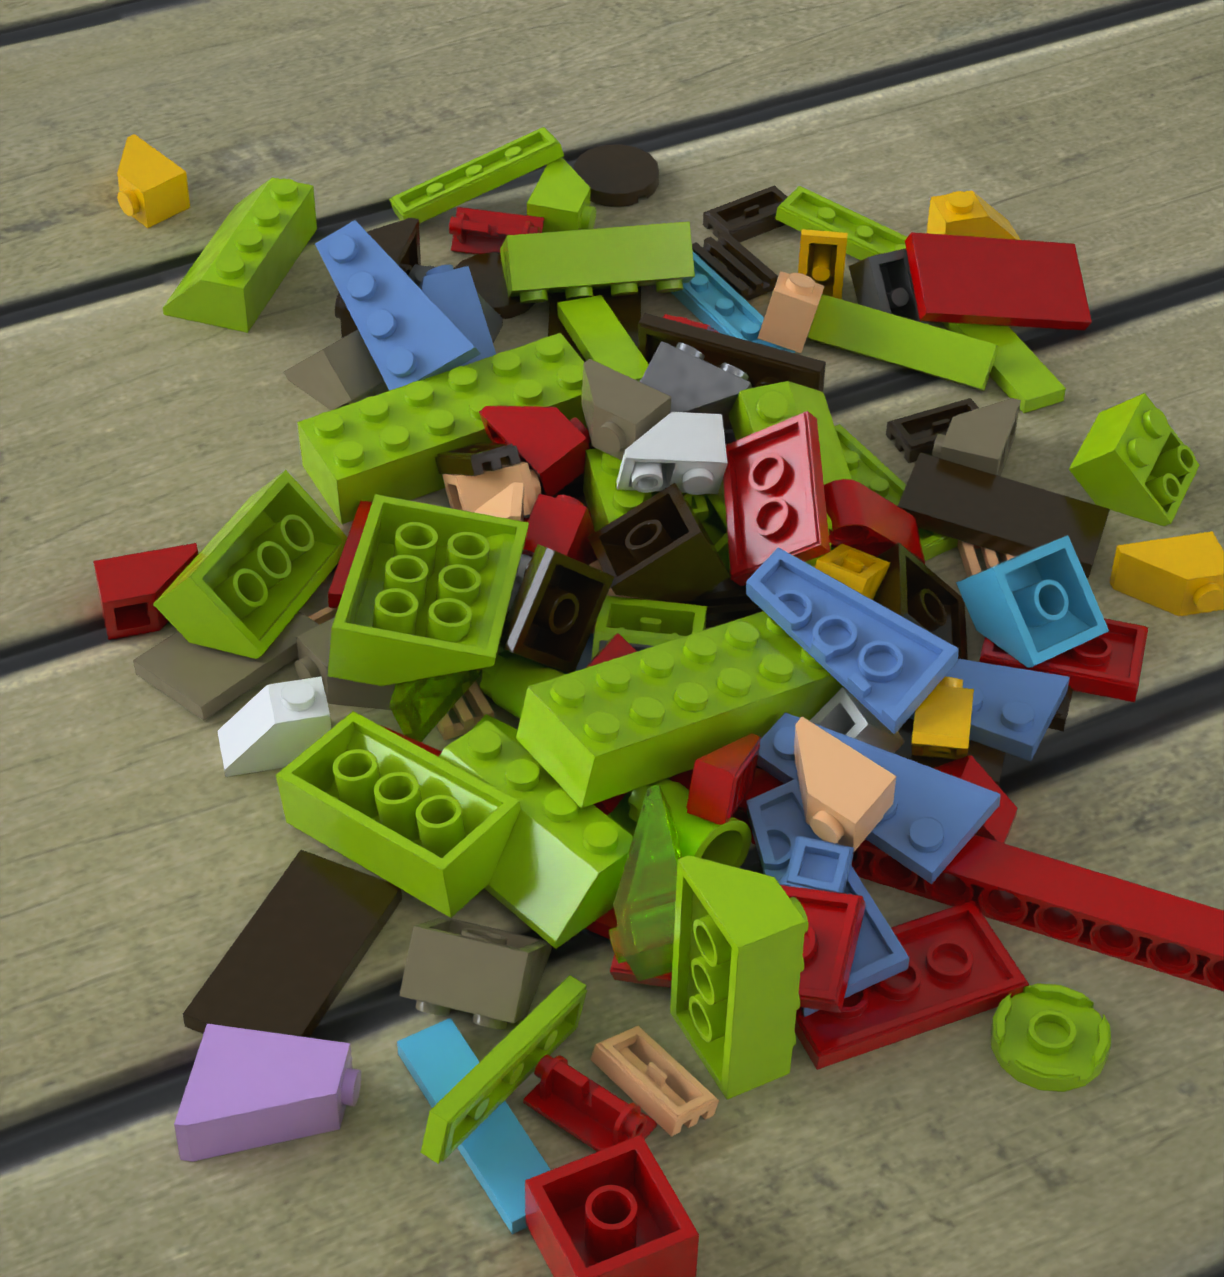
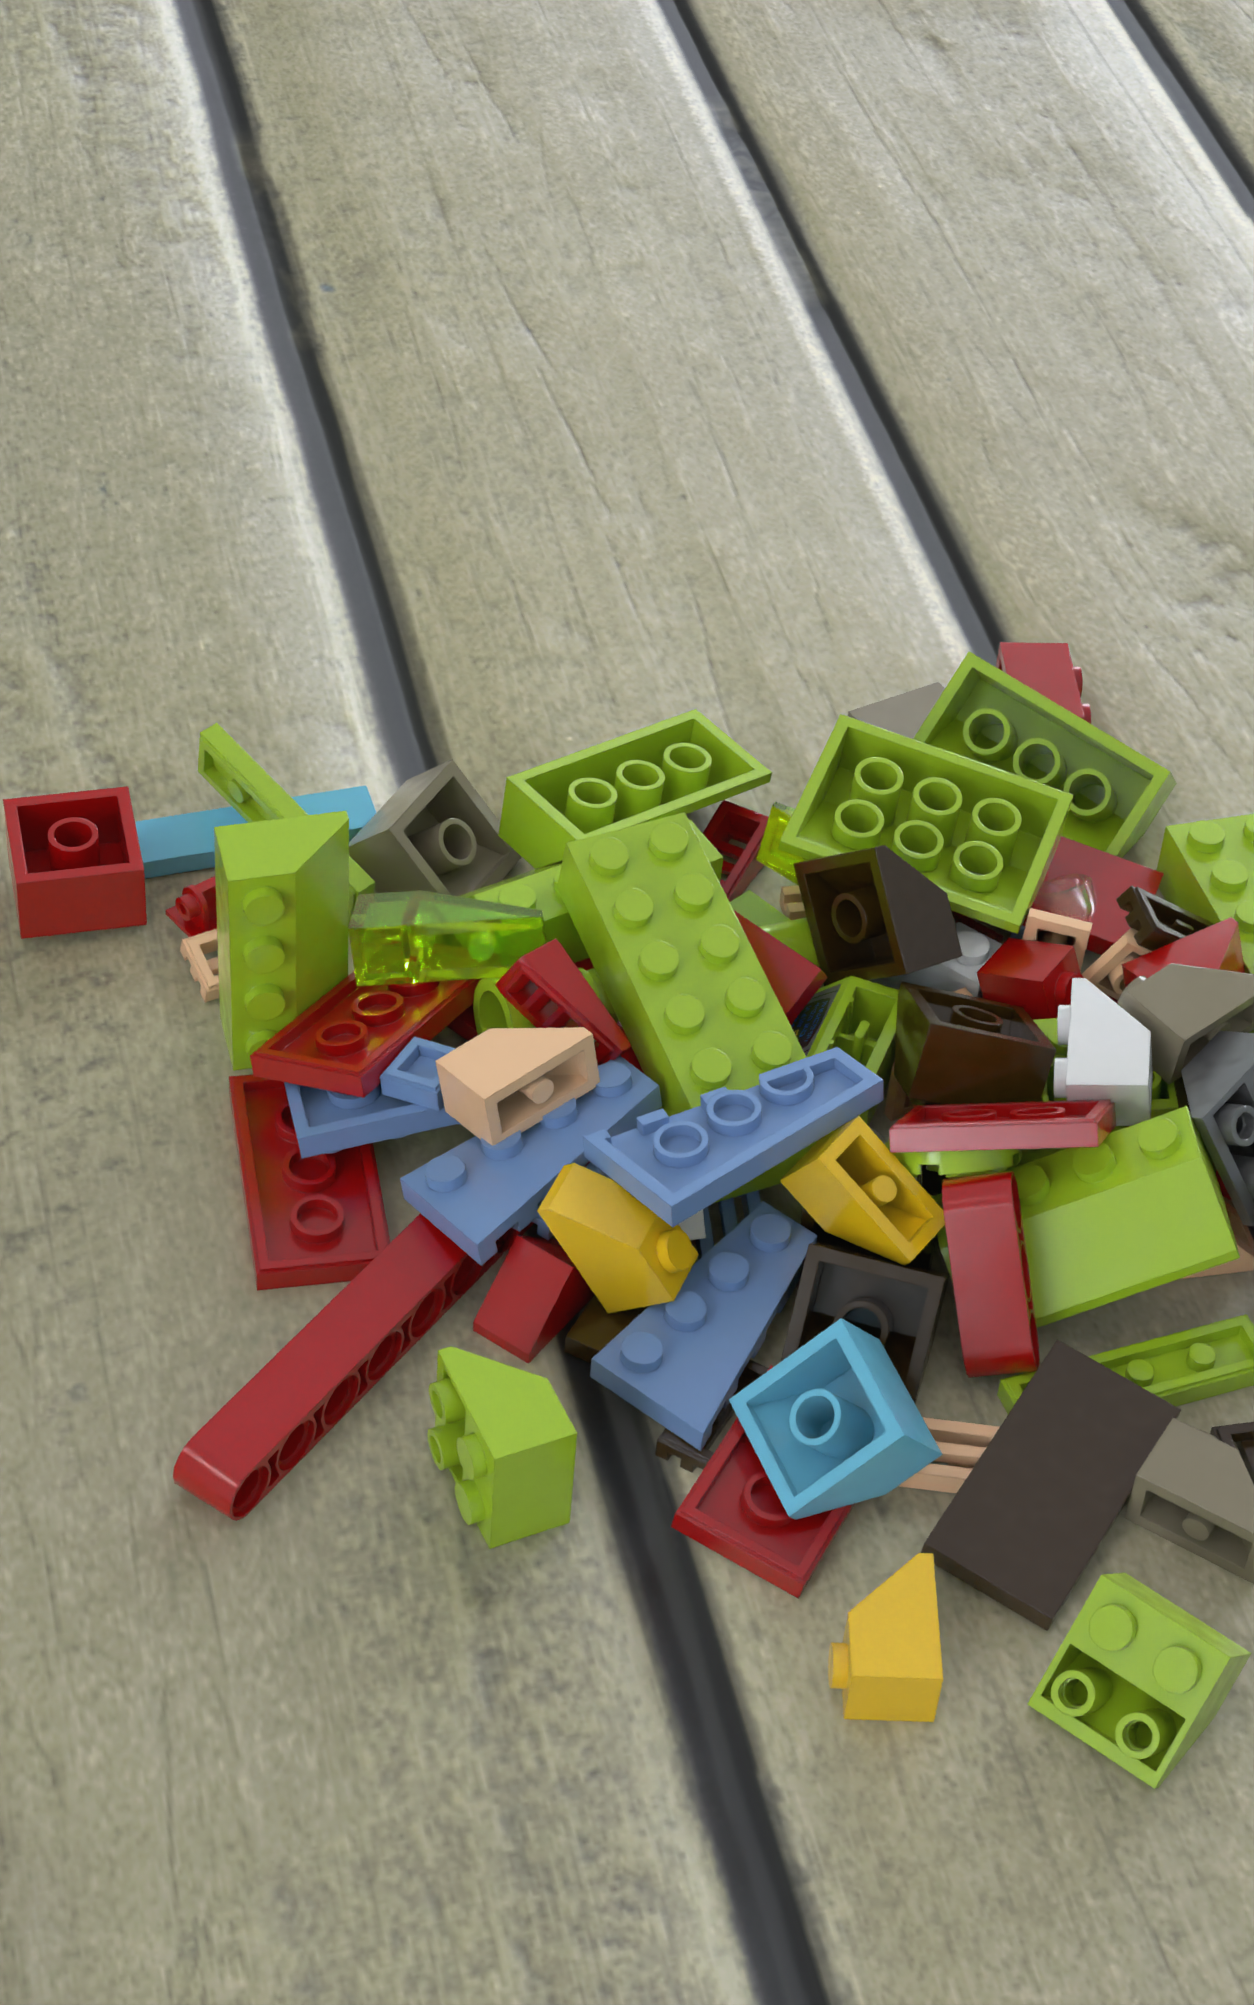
camera: 100 degrees right, 0 degrees up
(262, 1091) = (343, 688): lavender slope -> none
(275, 727) = (793, 759): white slope -> none
(296, 950) = (479, 727): dark brown tile -> none
(1050, 1038) = (186, 1283): lime tile -> none
(1156, 771) = (503, 1445): none -> lime slope

